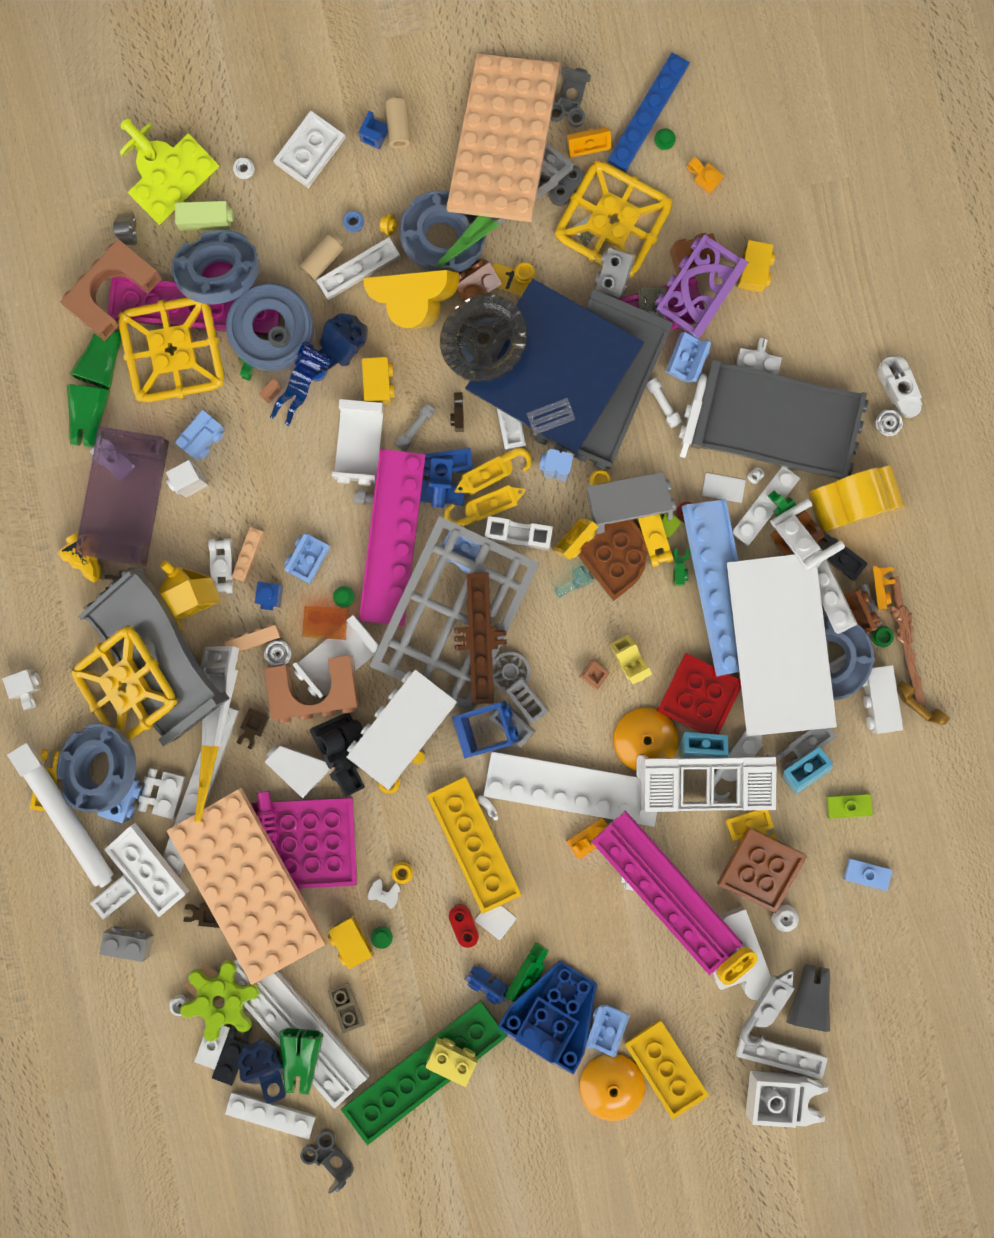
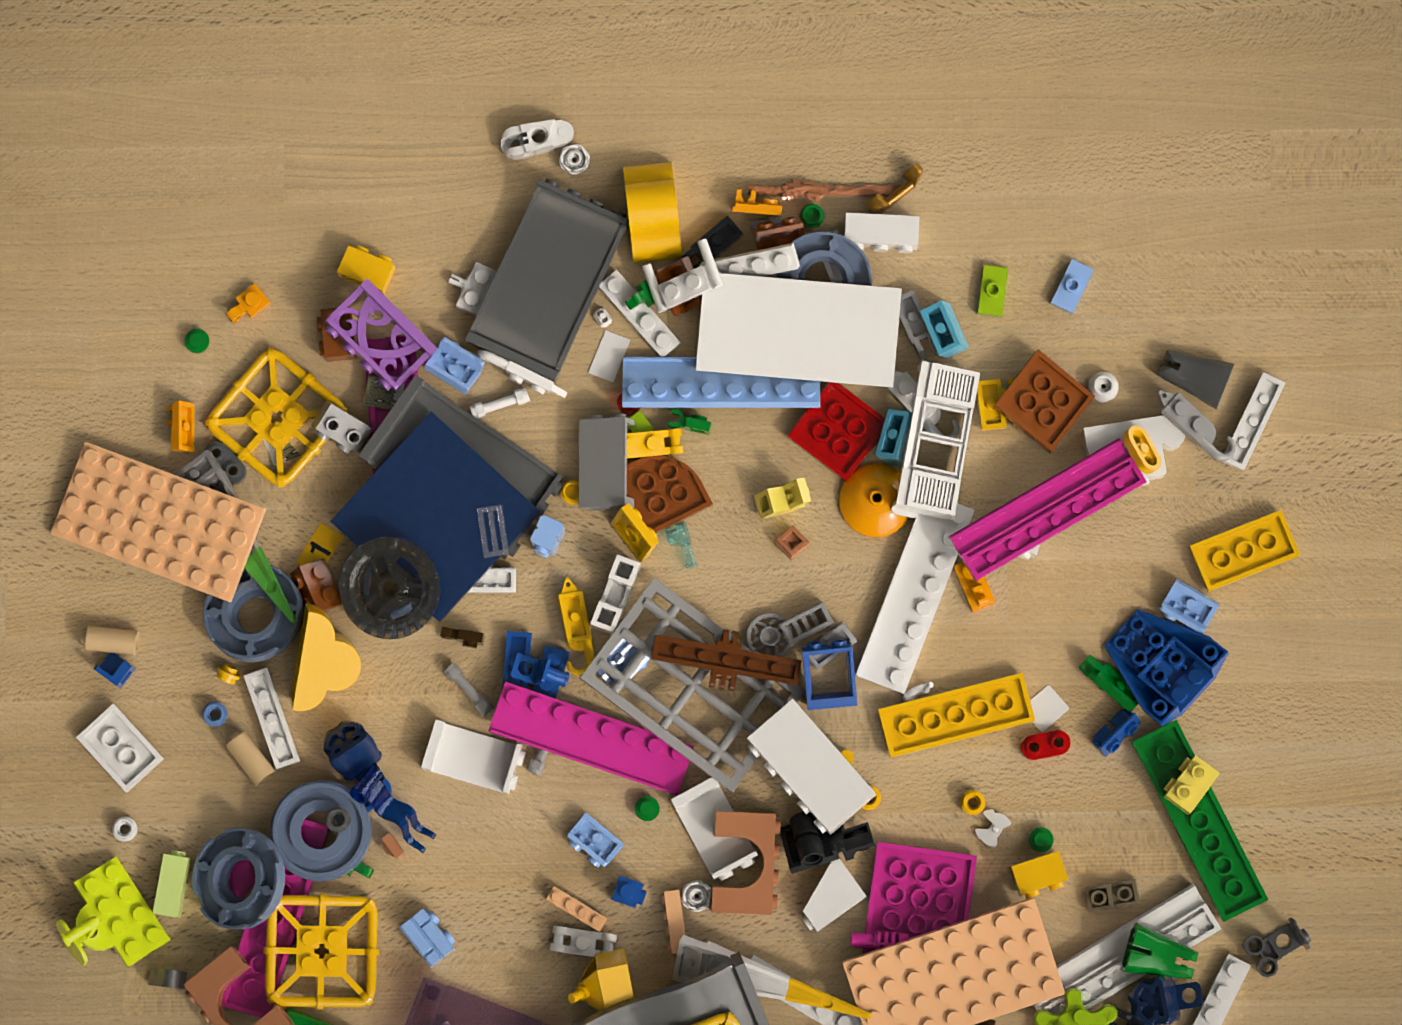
camera: 80 degrees left, 5 degrees down
(186, 479) = (477, 960): white brick -> none
(253, 724) = (772, 939): dark brown plate -> none
(325, 622) = (672, 834): clear orange plate -> none
(377, 380) = (407, 721): yellow brick -> none
(491, 471) = (538, 612): yellow plate -> none
(524, 273) = (317, 530): yellow plate -> none
(570, 108) = (135, 439): dark grey piece -> none
(607, 1073) = (1237, 618): light orange dish -> none
(648, 112) = (161, 353): blue plate -> none
(782, 1099) = (1303, 422): white brick -> none

